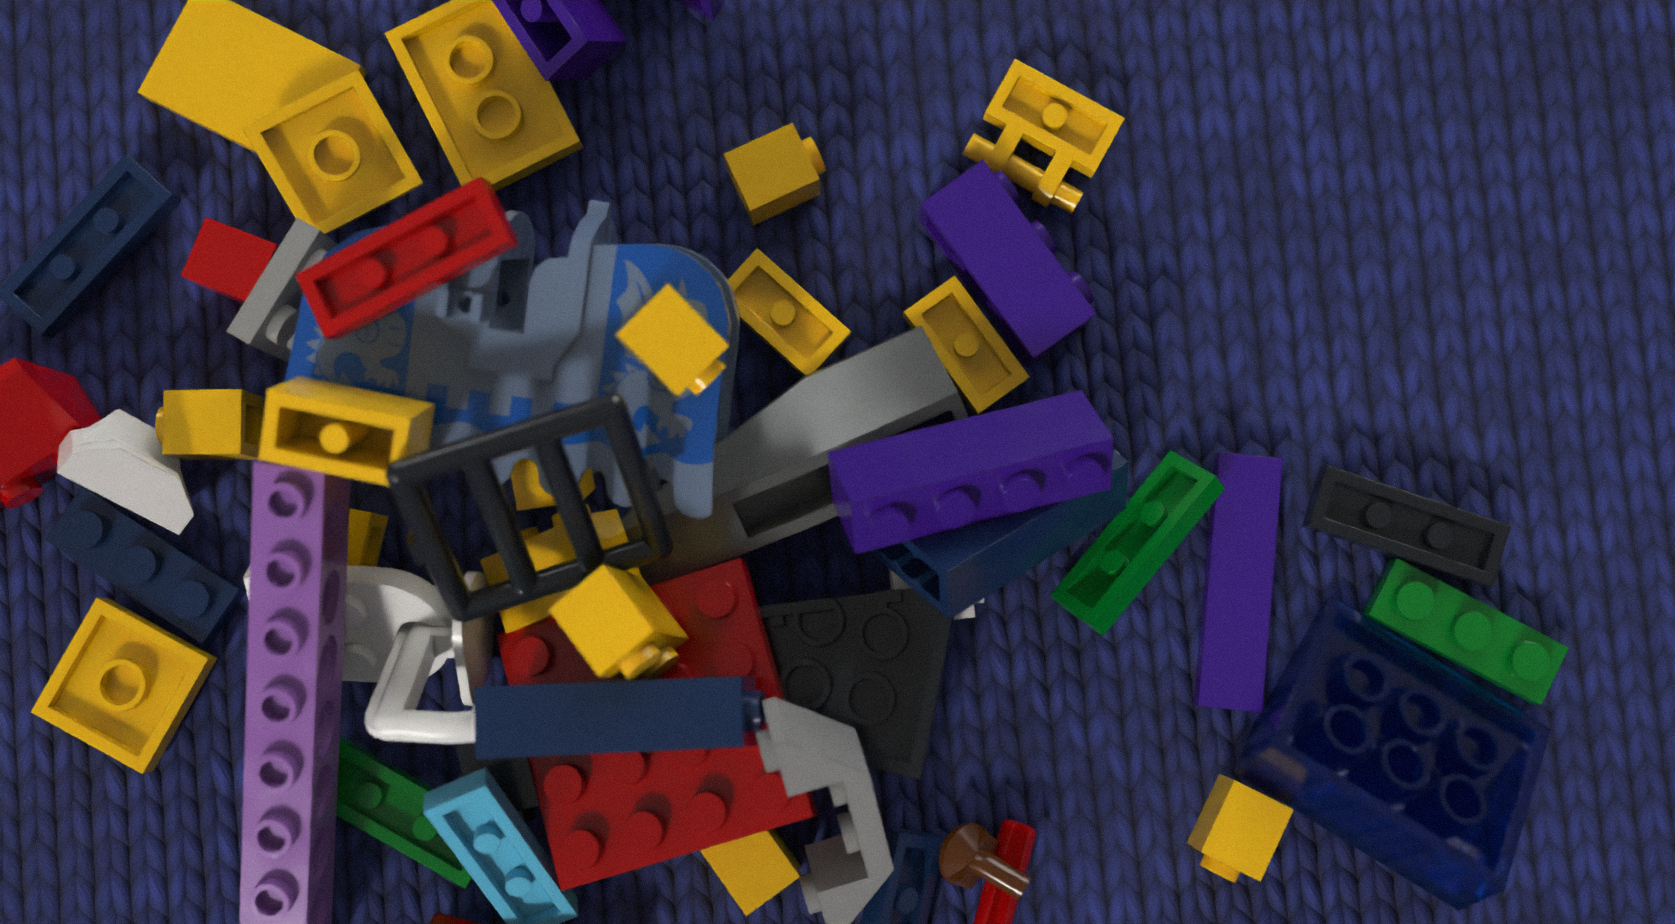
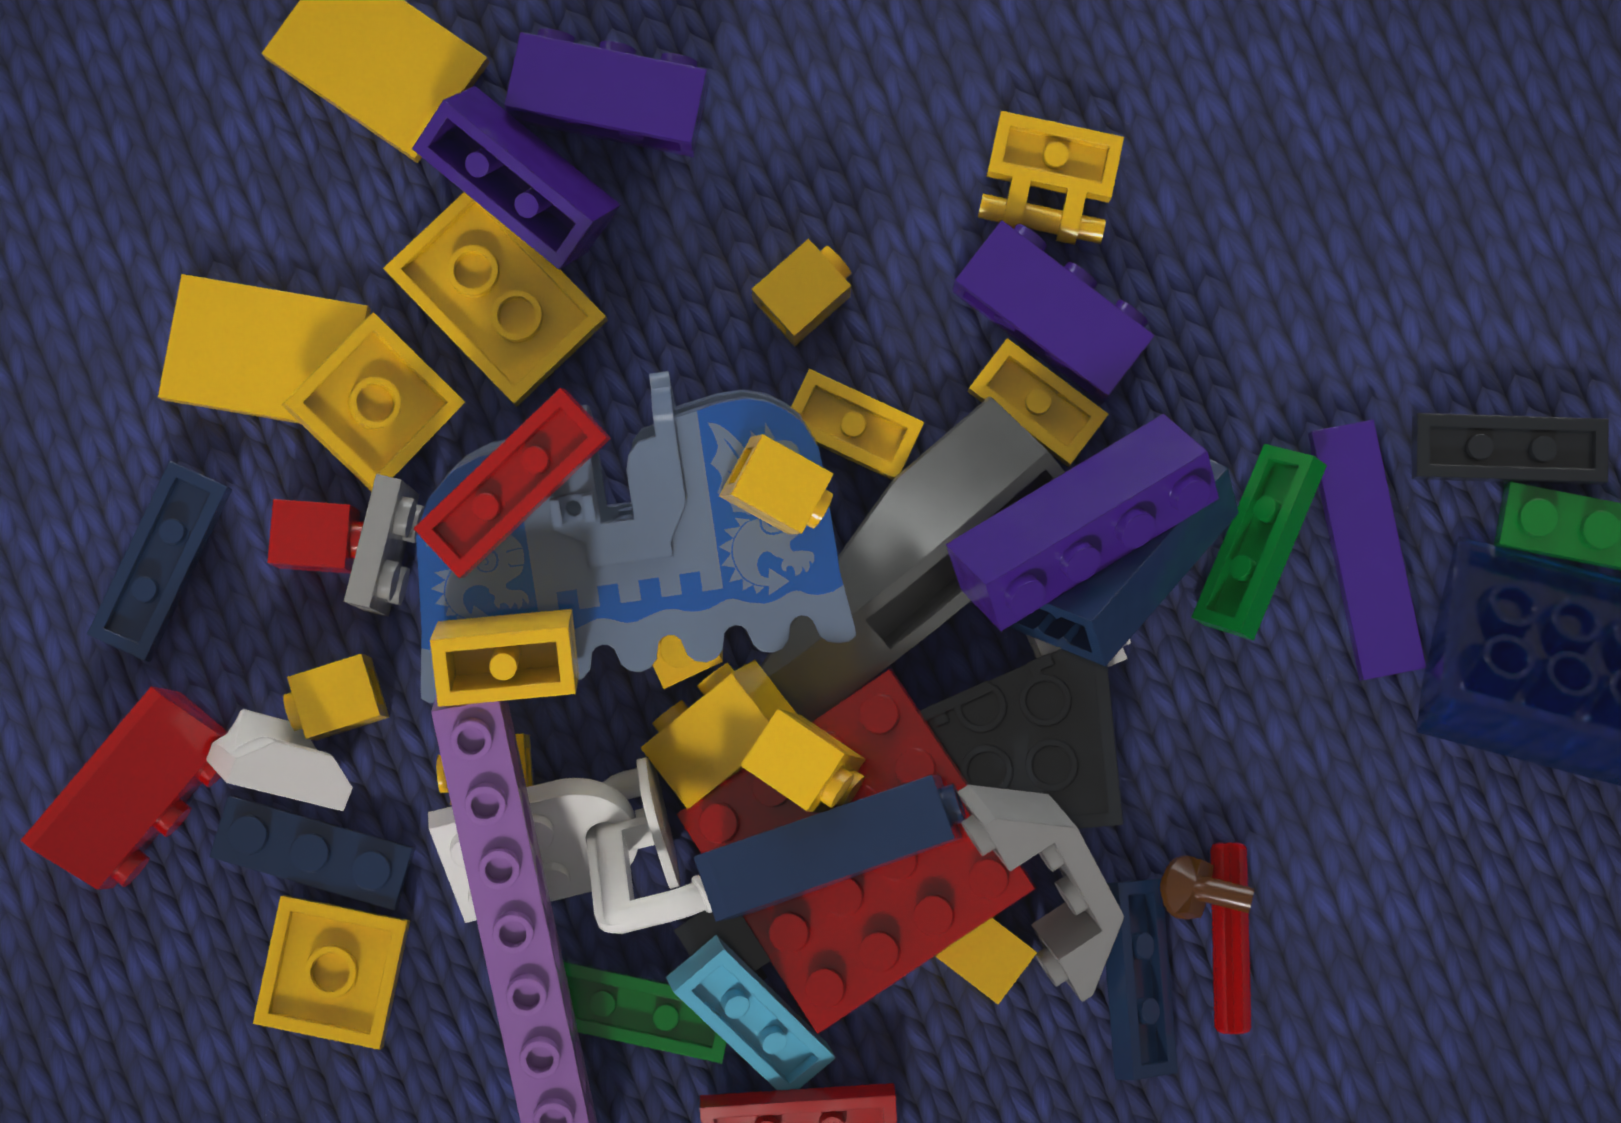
camera: 15 degrees left, 0 degrees up
(545, 434) = (636, 645): black bar -> none
(1238, 830) = (1436, 784): yellow brick -> none

